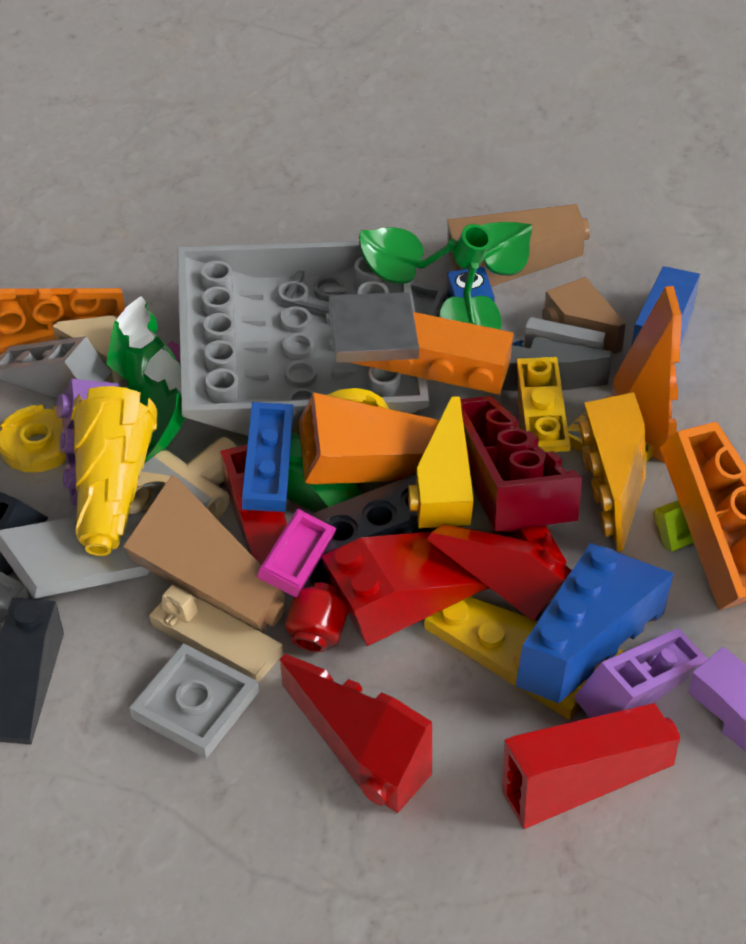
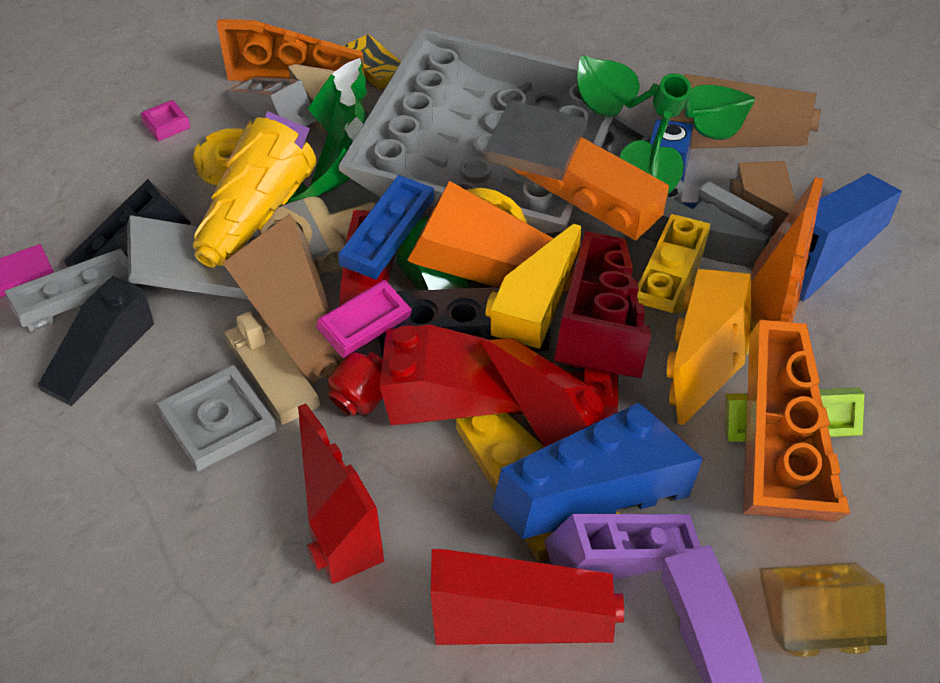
camera: 25 degrees right, 0 degrees up
(131, 288) = (378, 61): none -> yellow tile

